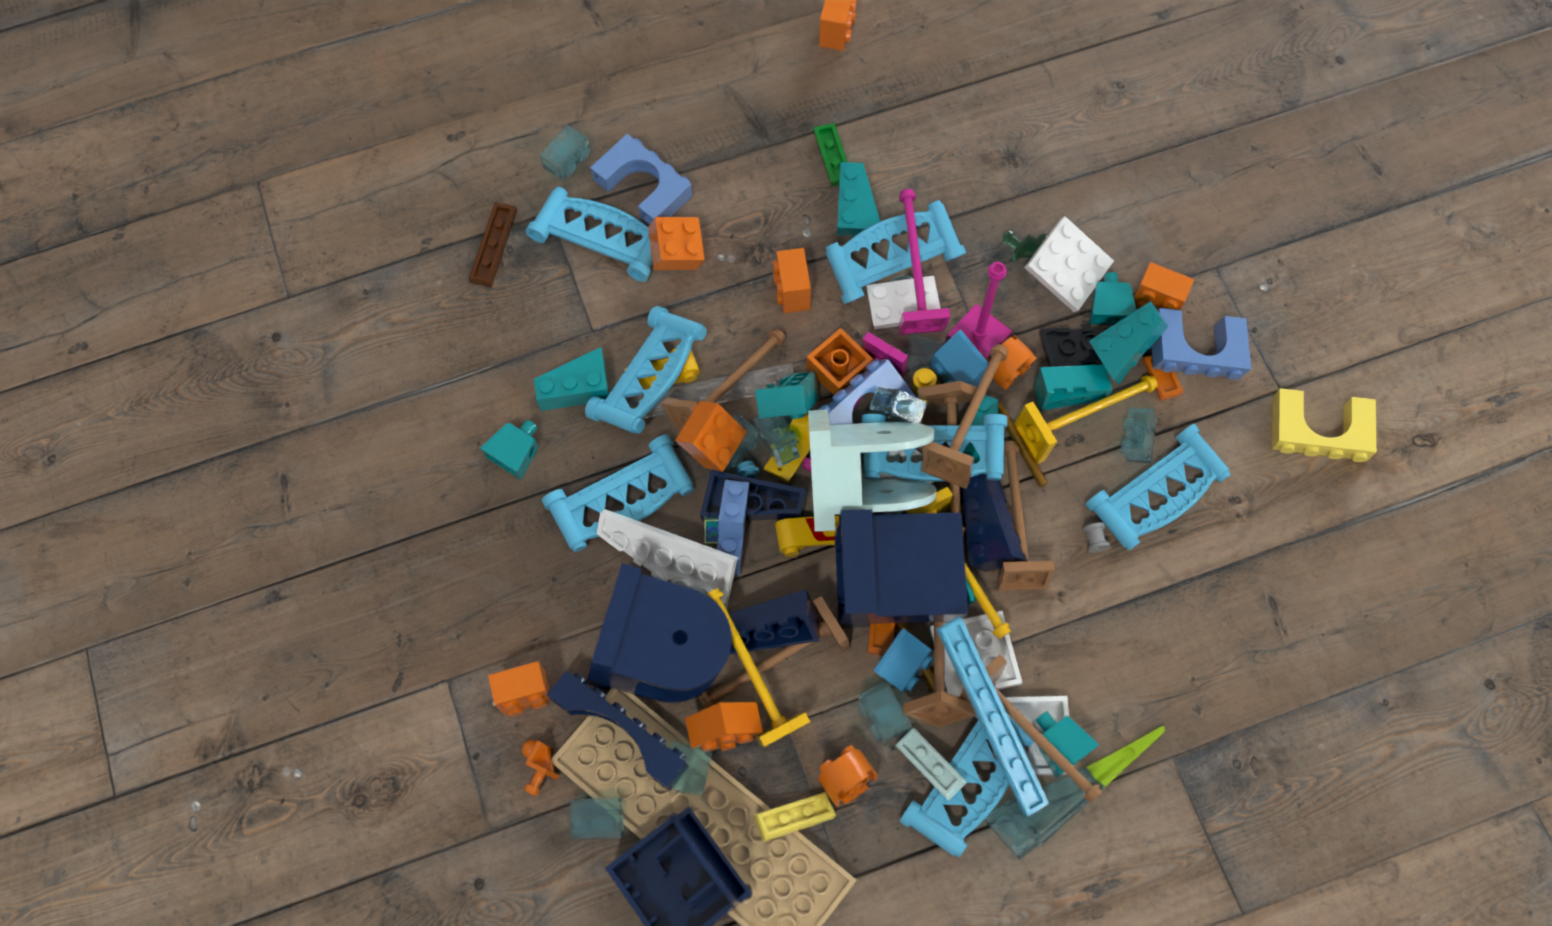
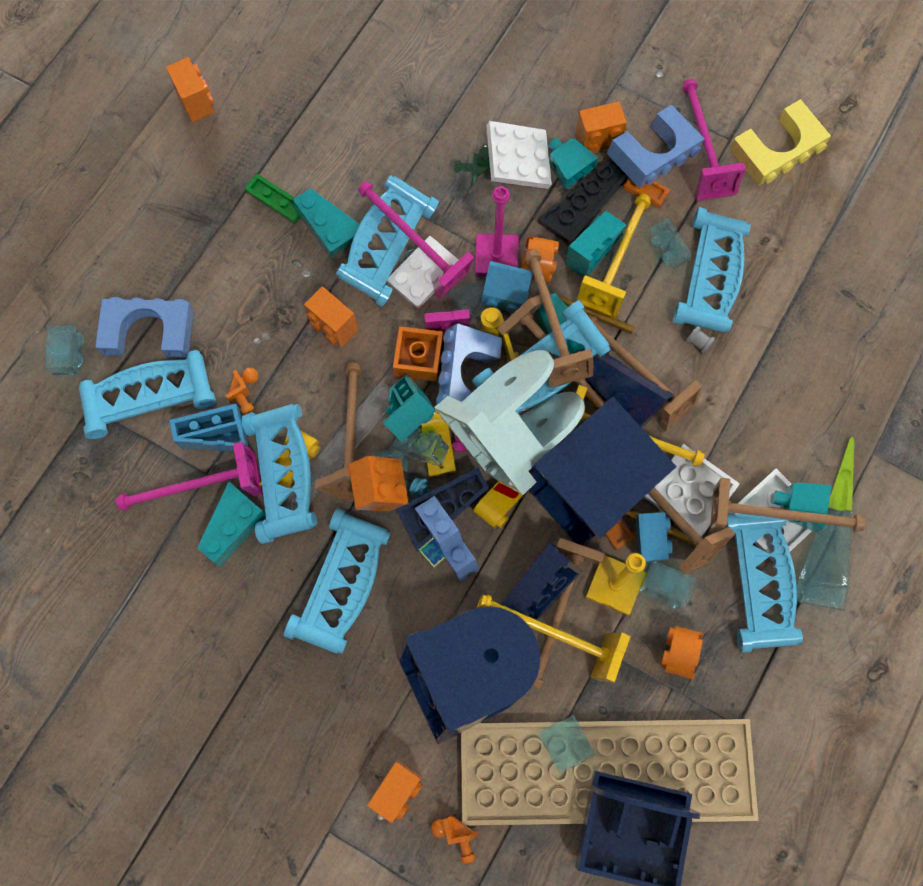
camera: 40 degrees left, 5 degrees up
(492, 245) = (66, 467): reddish brown tile -> none
(512, 448) = (224, 613): teal torso -> none
(576, 698) = (441, 763): dark blue arch -> none
(596, 818) = (533, 836): clear light blue plate -> none
(619, 352) = (246, 470): none -> dark pink tile
(623, 298) = (210, 429): none -> dark azure wedge
(670, 555) = (422, 600): white wing -> none
(672, 285) = (239, 391): none -> orange piece
(676, 243) = (216, 356): orange brick -> none
(724, 725) = (570, 691): orange brick -> none
(794, 816) = (670, 712): light yellow tile -> none
(841, 676) = (617, 583): none -> yellow tile
(902, 406) = (501, 350): clear light blue torso -> none
(931, 764) = (729, 593): light aqua tile -> none
(992, 716) = (749, 524): medium azure tile -> none
(1128, 340) = (611, 179): teal wedge -> none
(1231, 412) = (716, 180): none -> dark pink tile

